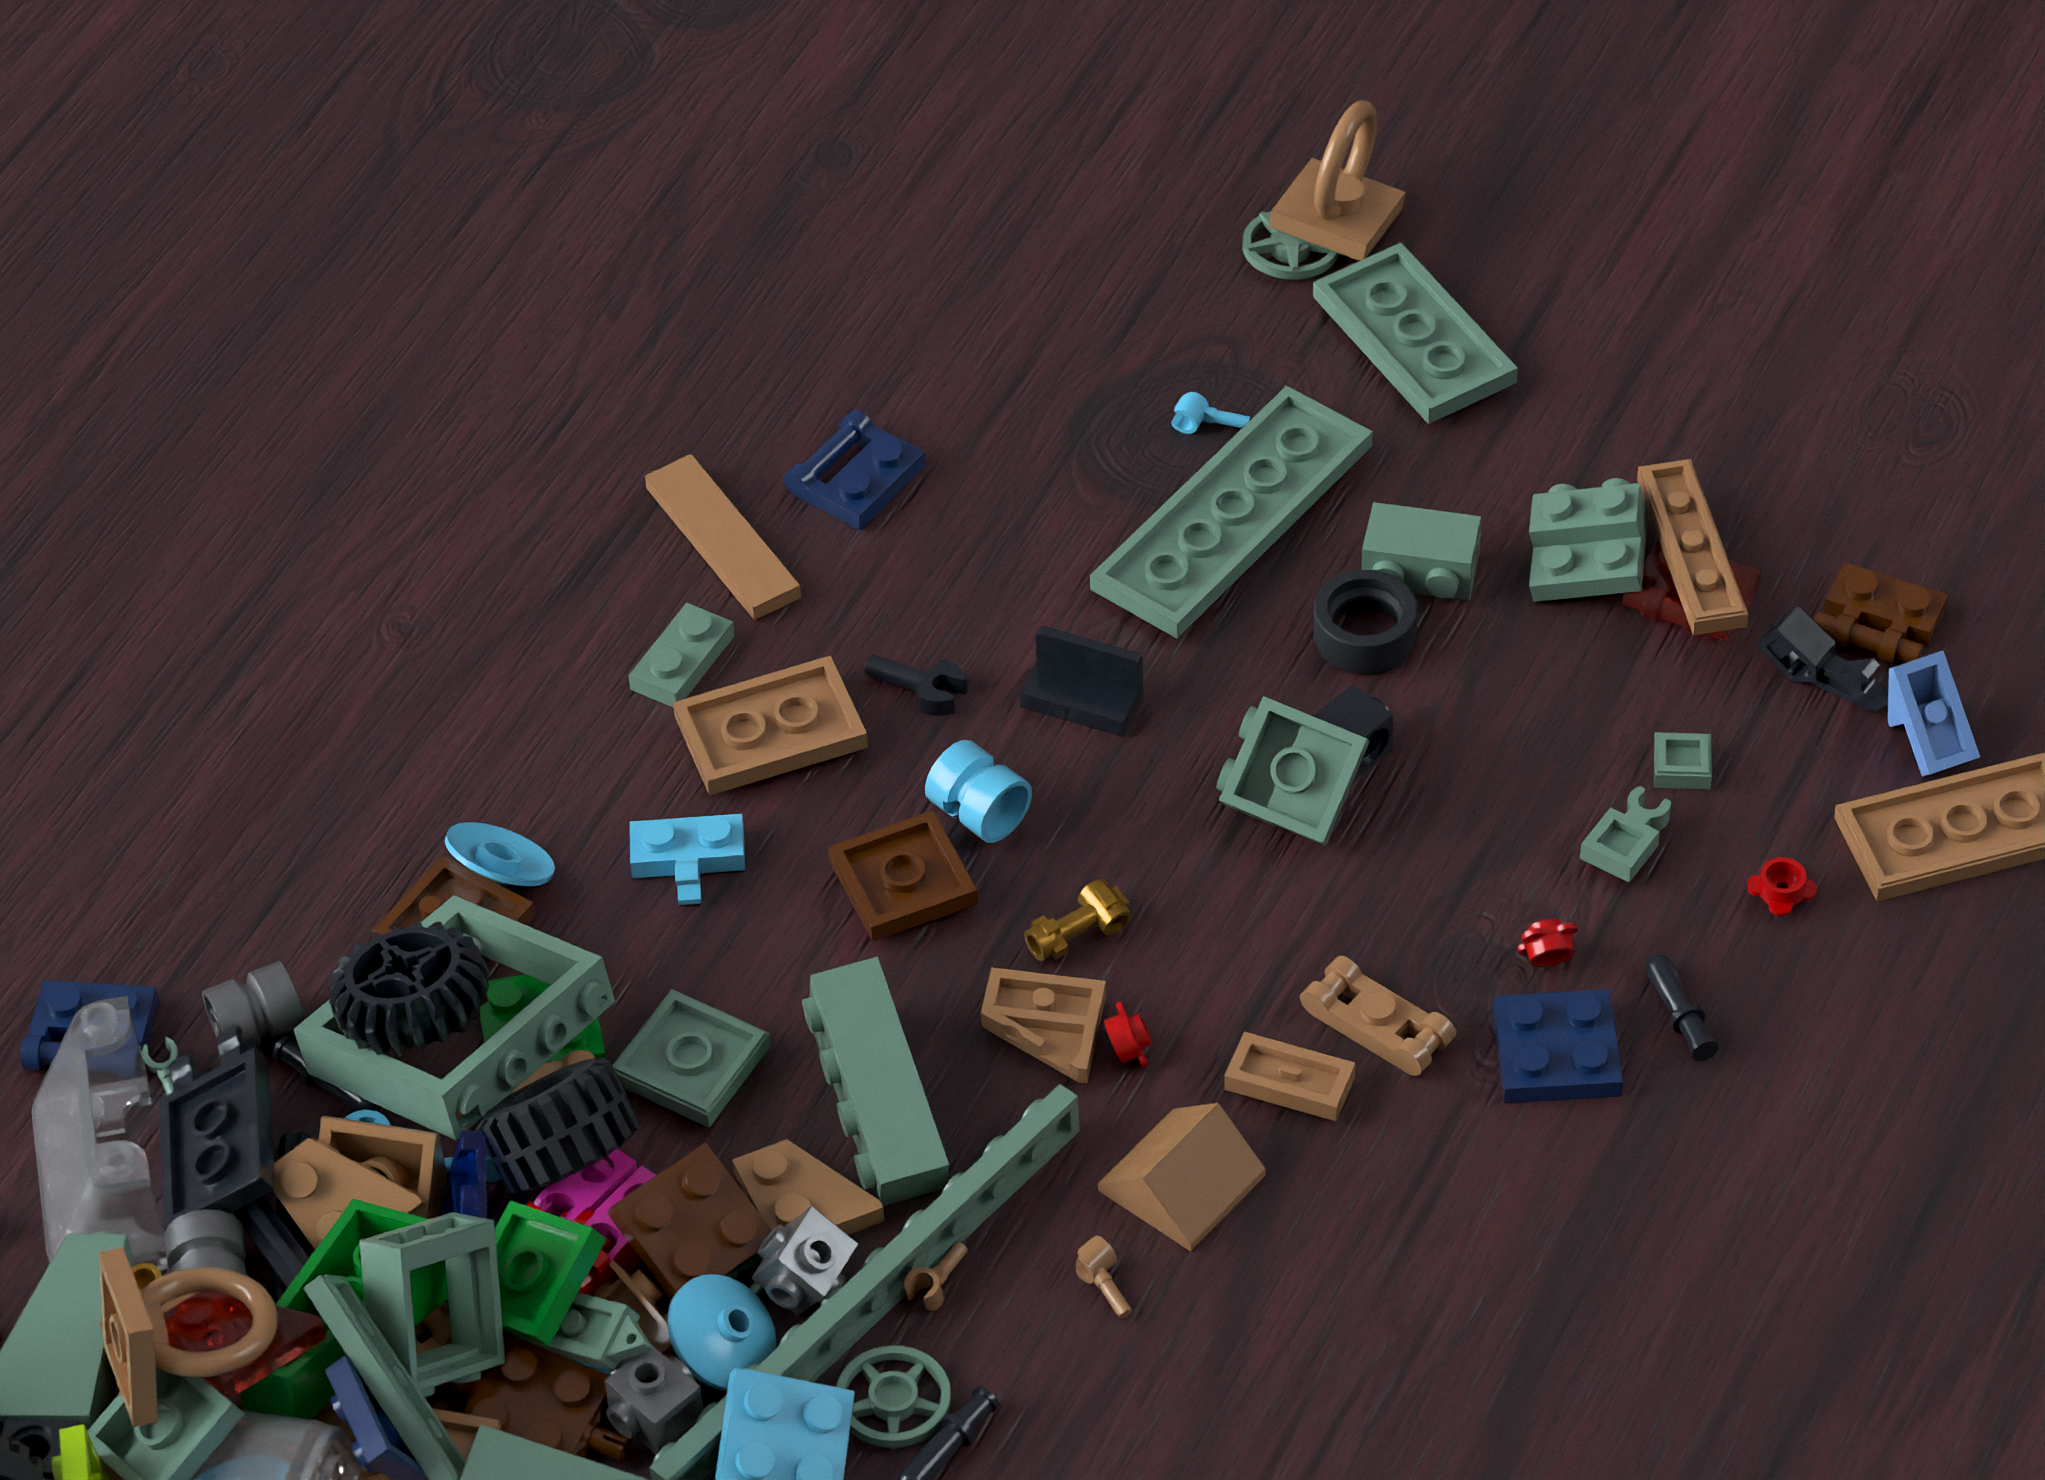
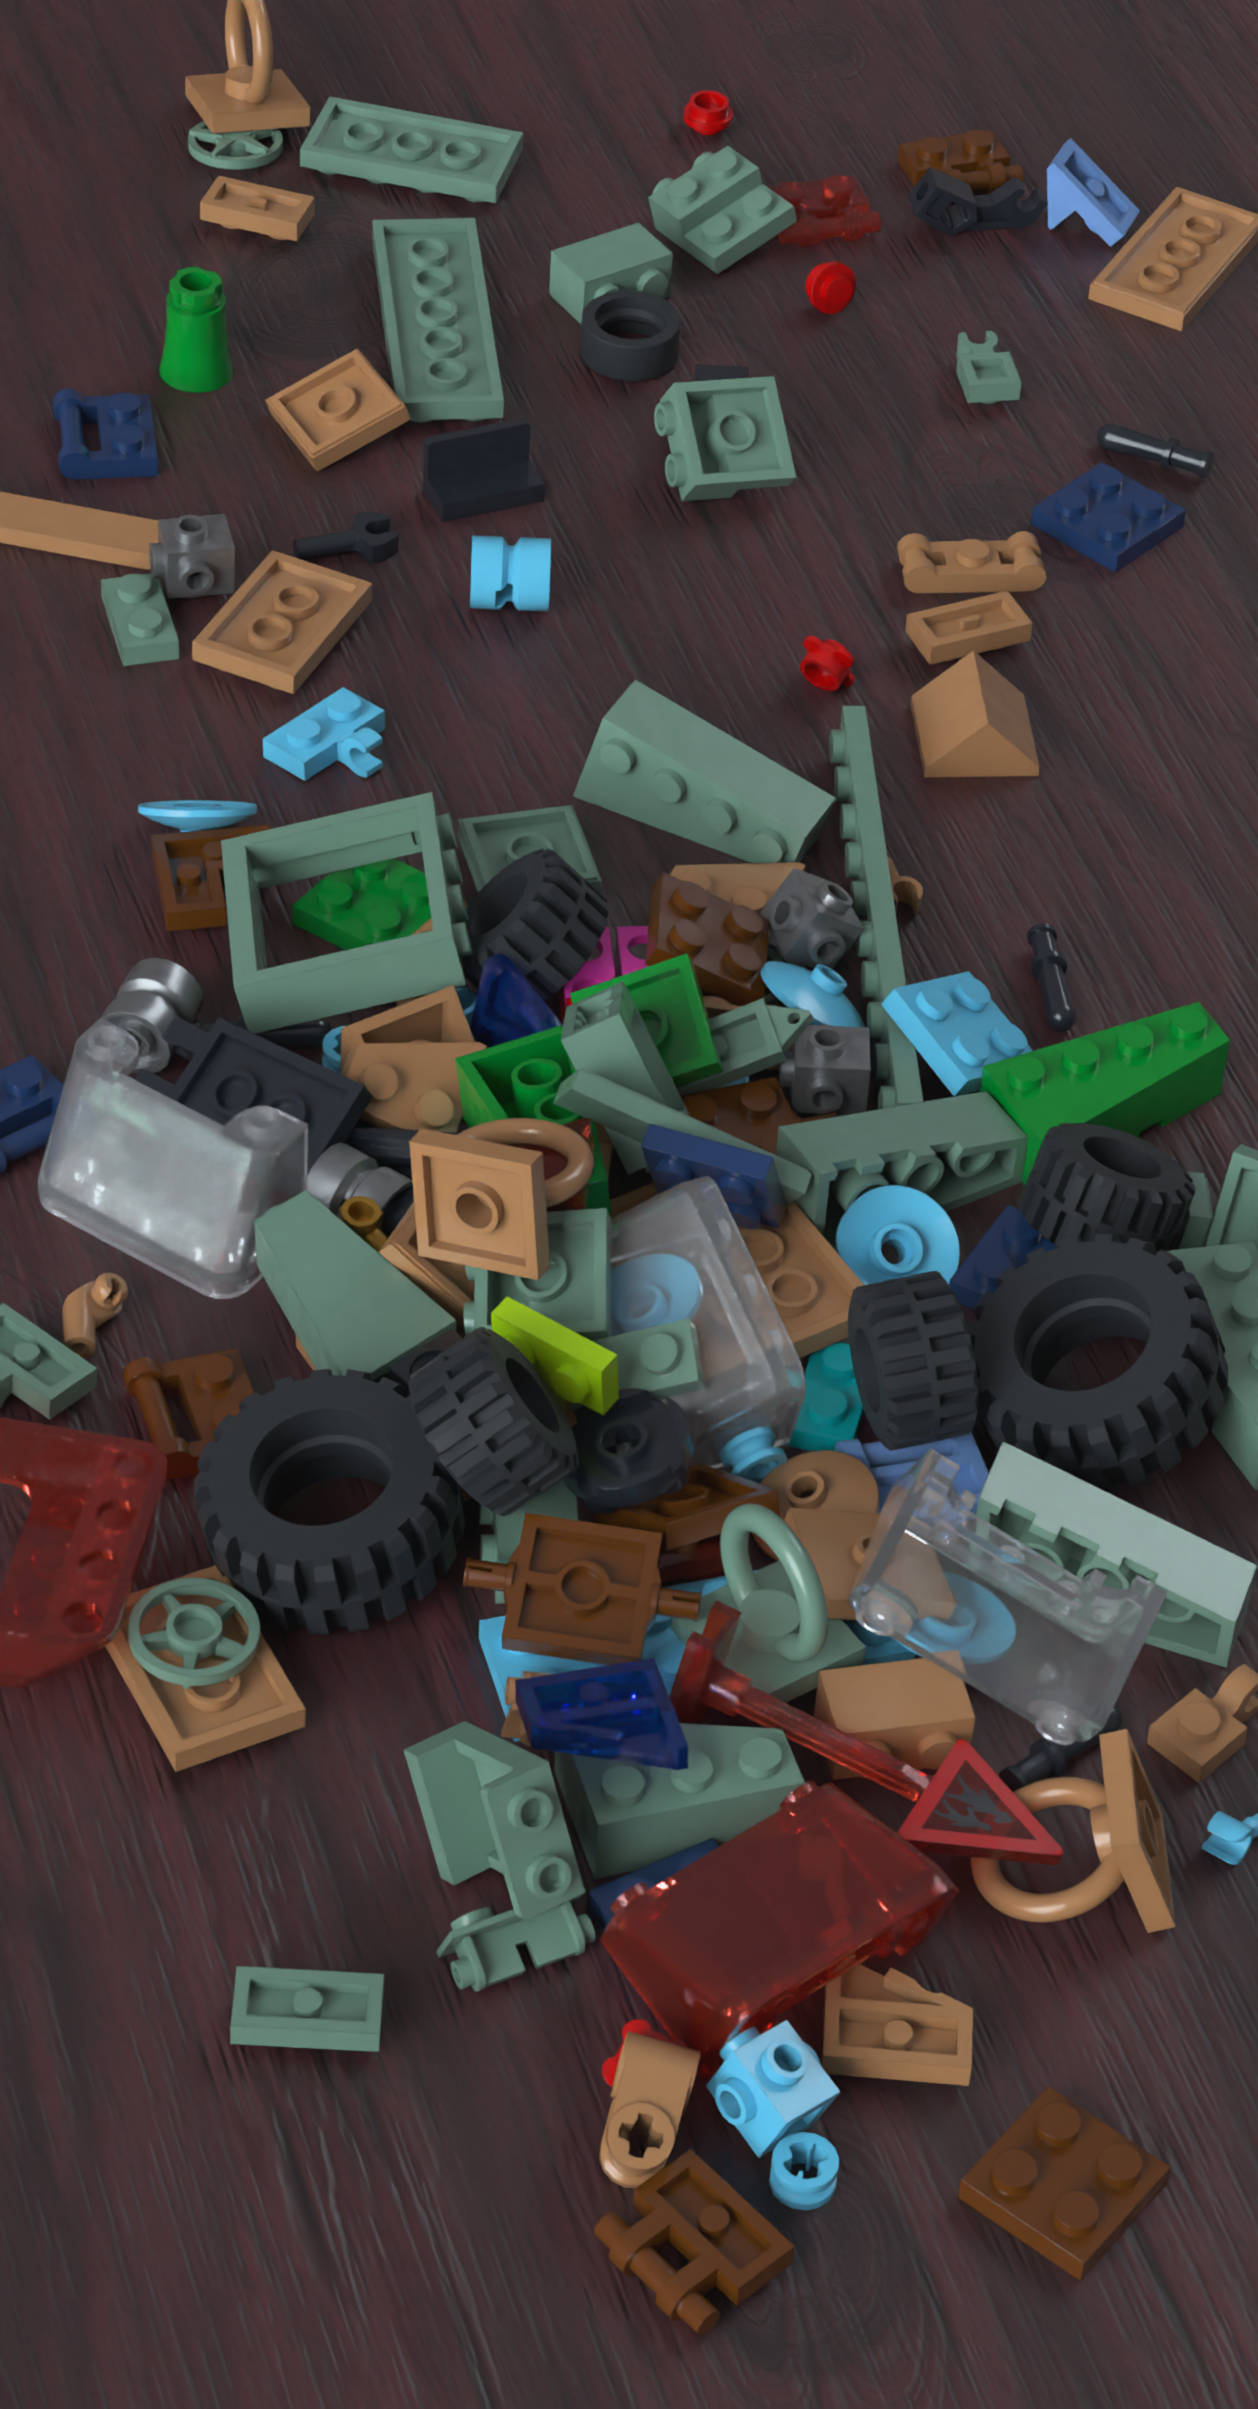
camera: 50 degrees left, 5 degrees down
(409, 988) = (318, 888): black gear -> none
(762, 625) = (194, 556): none -> flat silver brick
(895, 1396) = (979, 966): sand green wheel -> none
(903, 875) = (521, 659): reddish brown plate -> none
(1004, 424) = (196, 336): none -> green plant
(1044, 553) = (337, 409): none -> medium nougat plate
(1046, 1017) = (753, 686): medium nougat wing -> none
(1092, 1265) = (996, 818): medium nougat hand -> none
(1100, 907) = (692, 602): pearl gold bar -> none
(1194, 409) = (321, 275): medium azure hand -> none
(1219, 320) = (257, 208): none -> medium nougat plate
(1548, 942) = (1026, 455): red plate -> none
(1594, 673) = (830, 287): none -> red plate
(1682, 760) = (951, 313): sand green tile -> none
(1692, 547) = (809, 176): medium nougat tile -> none
(1717, 434) = (708, 112): none -> red plate
(1782, 885) = (1121, 346): red plate -> none

